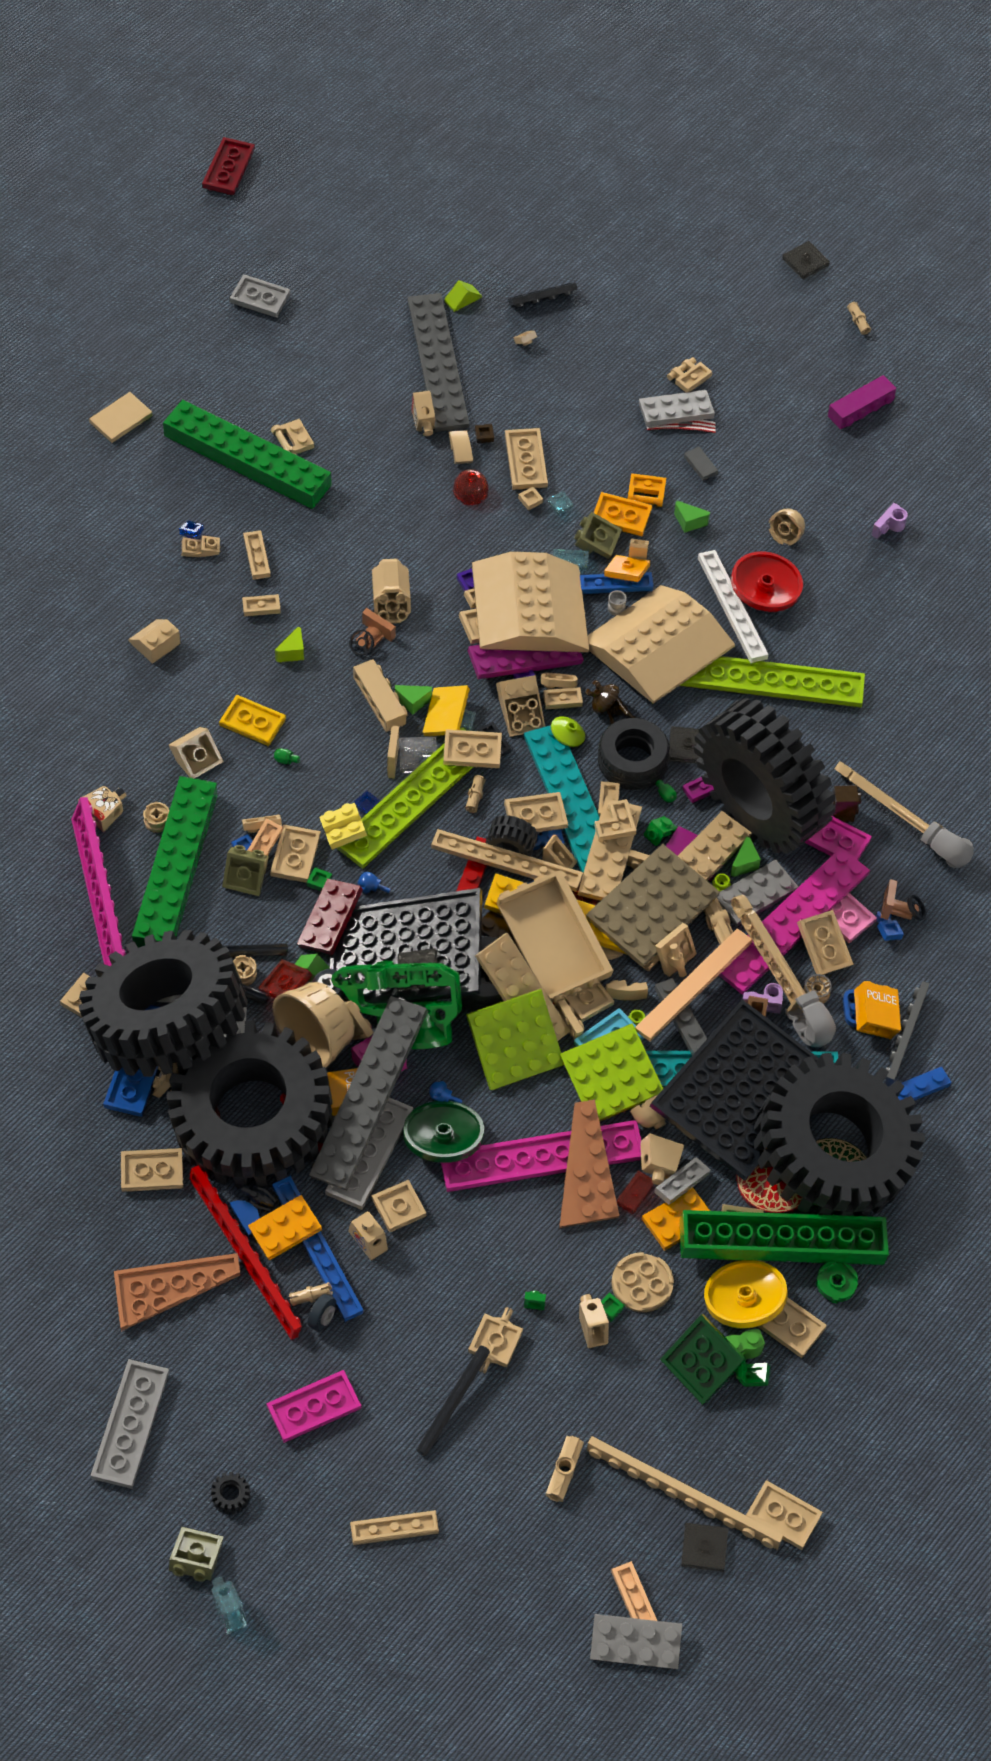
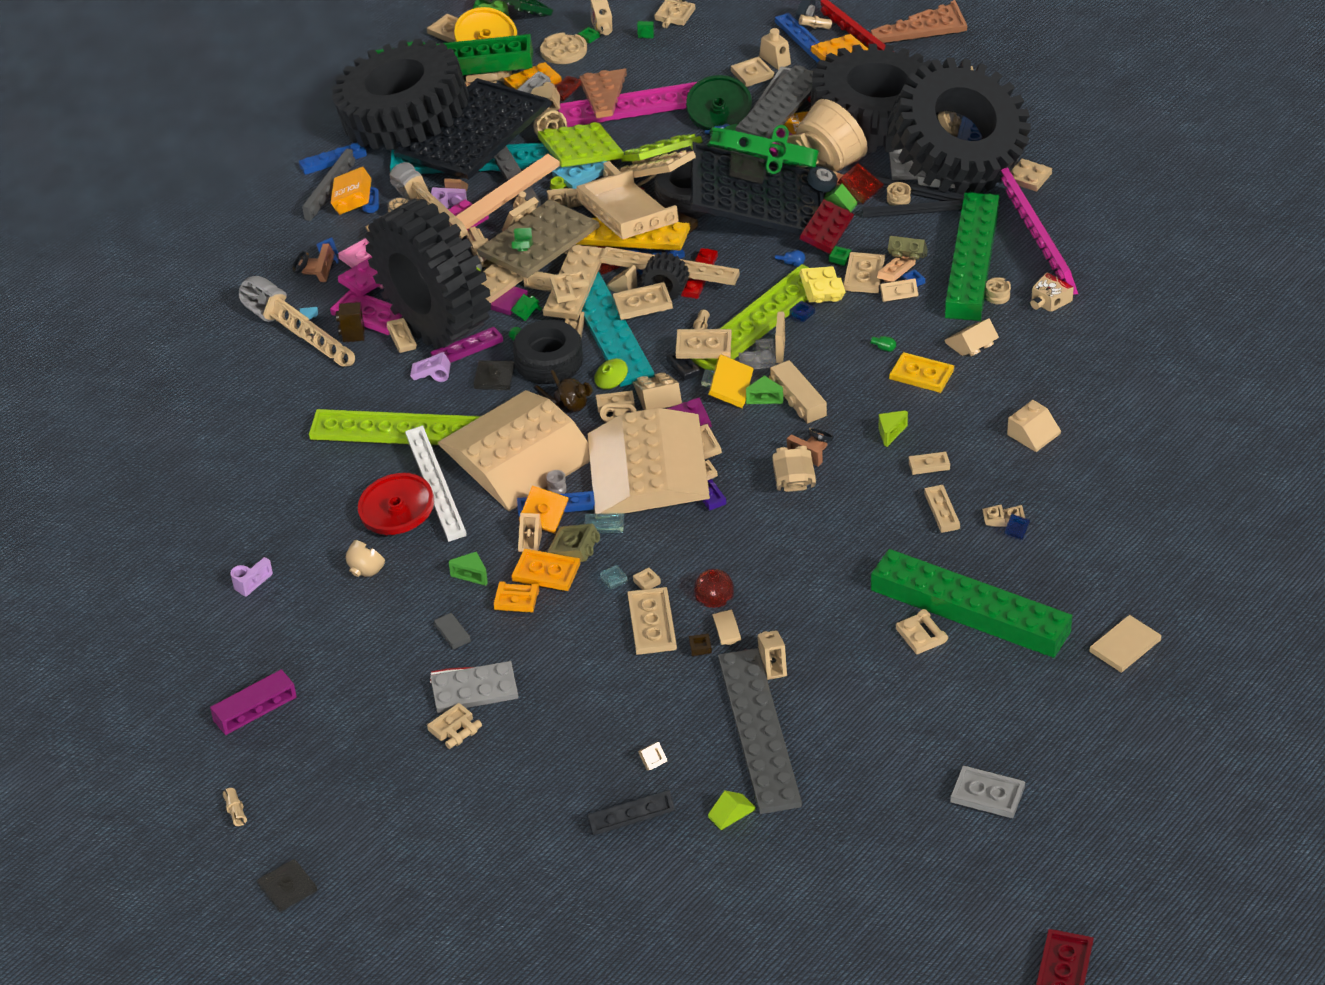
camera: 175 degrees left, 15 degrees down
(669, 872) = (523, 239): none -> green bracket
(896, 840) = (309, 312): none -> medium azure tile

